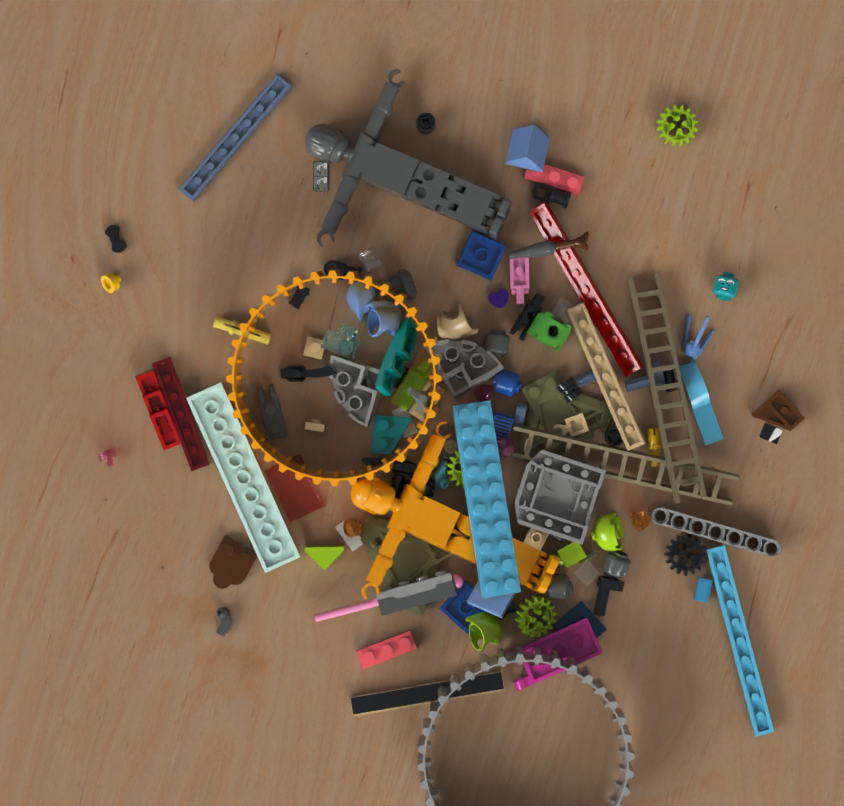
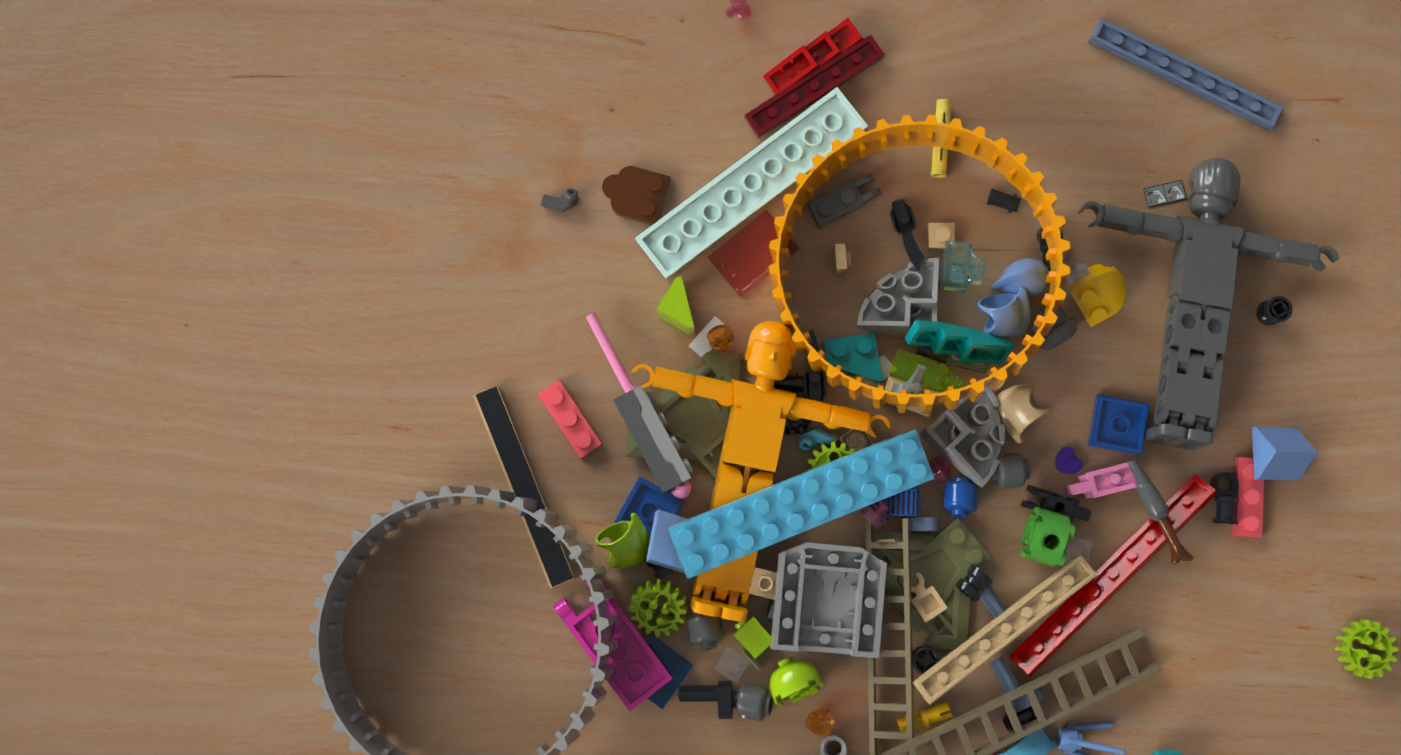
camera: 85 degrees right, 5 degrees down
(384, 247) = (1099, 293): none -> yellow slope

